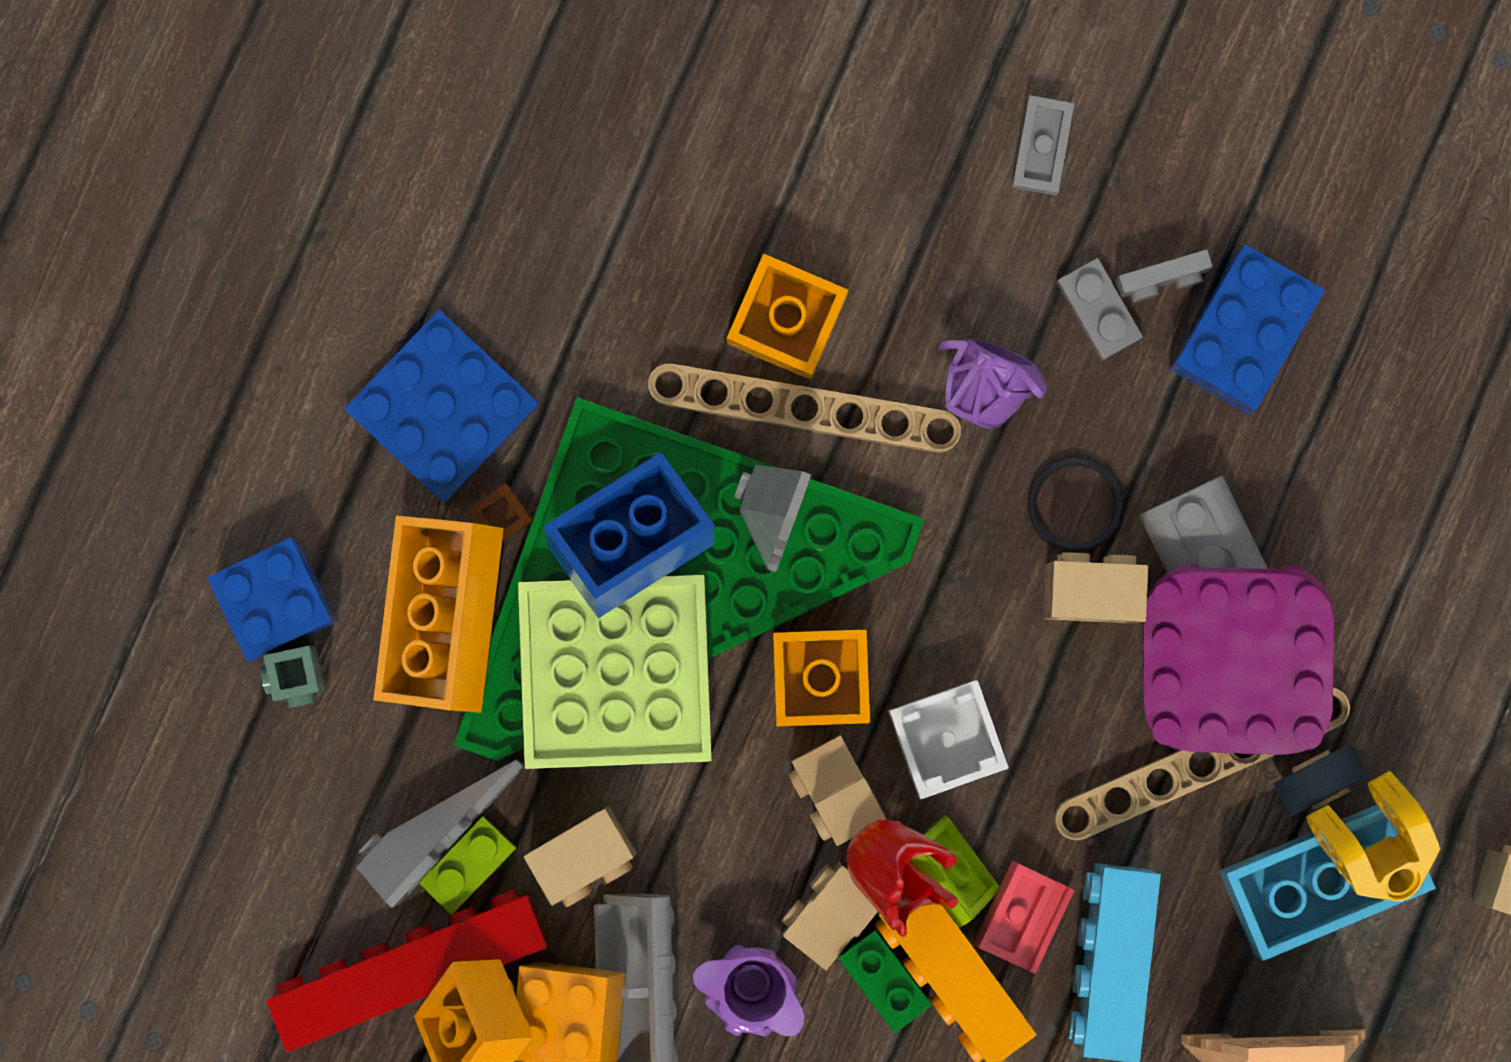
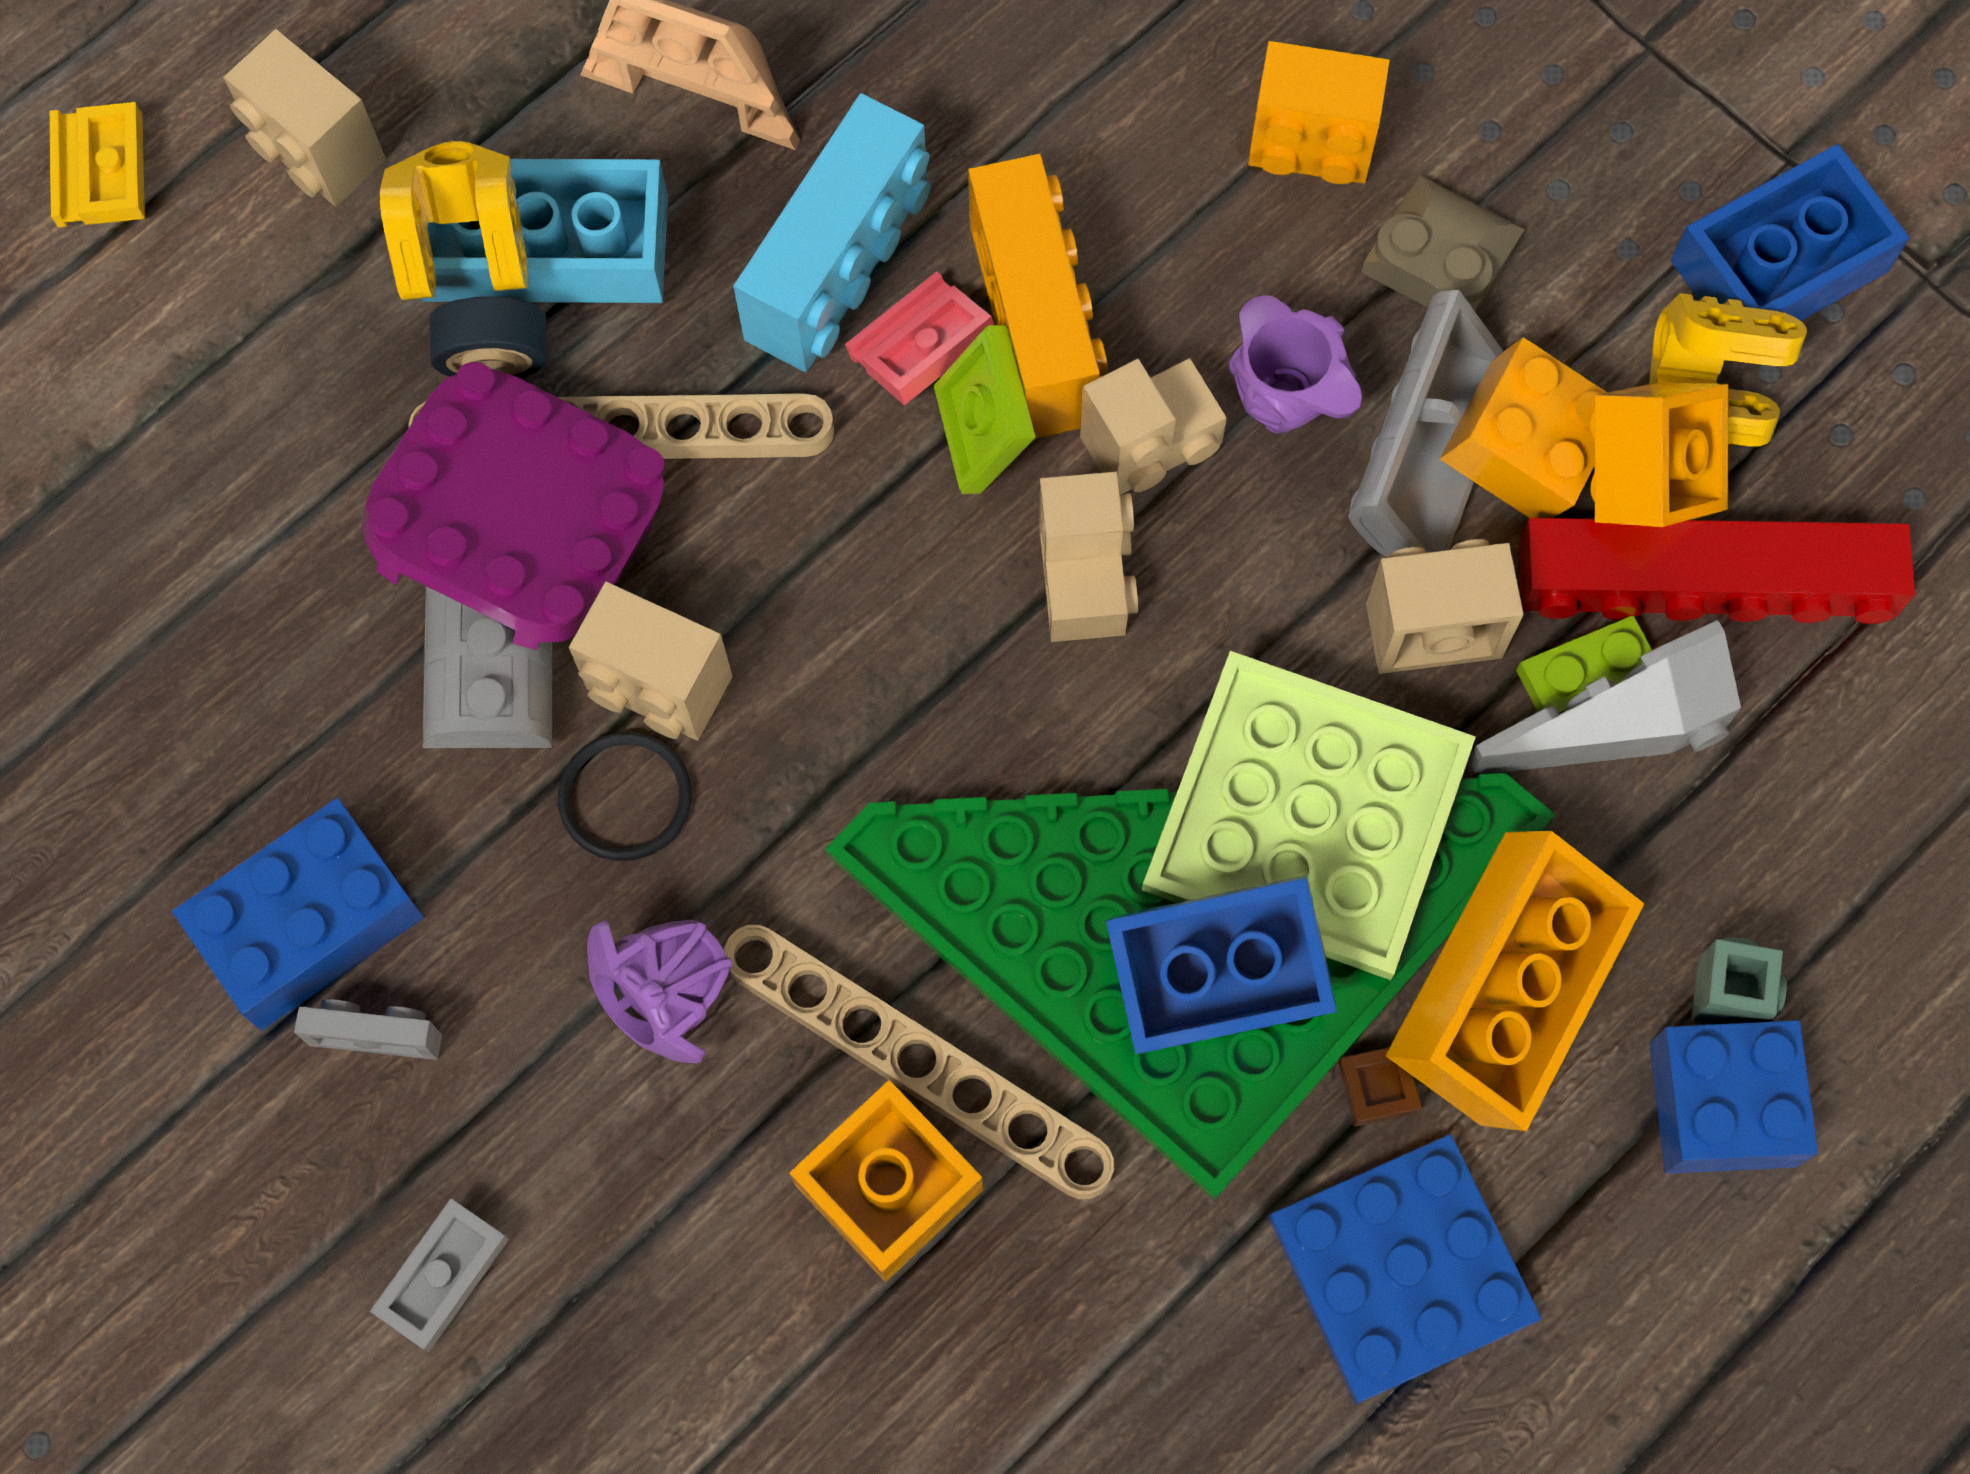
camera: 155 degrees left, 15 degrees down
(770, 508) = (1011, 915): light grey wedge -> none
(821, 678) = (1045, 702): light orange brick -> none
(884, 979) = (1124, 314): green brick -> none
(886, 877) = (1059, 401): red hair -> none
(948, 739) = (918, 570): white container -> none
(1099, 309) = (473, 1028): light grey plate -> none

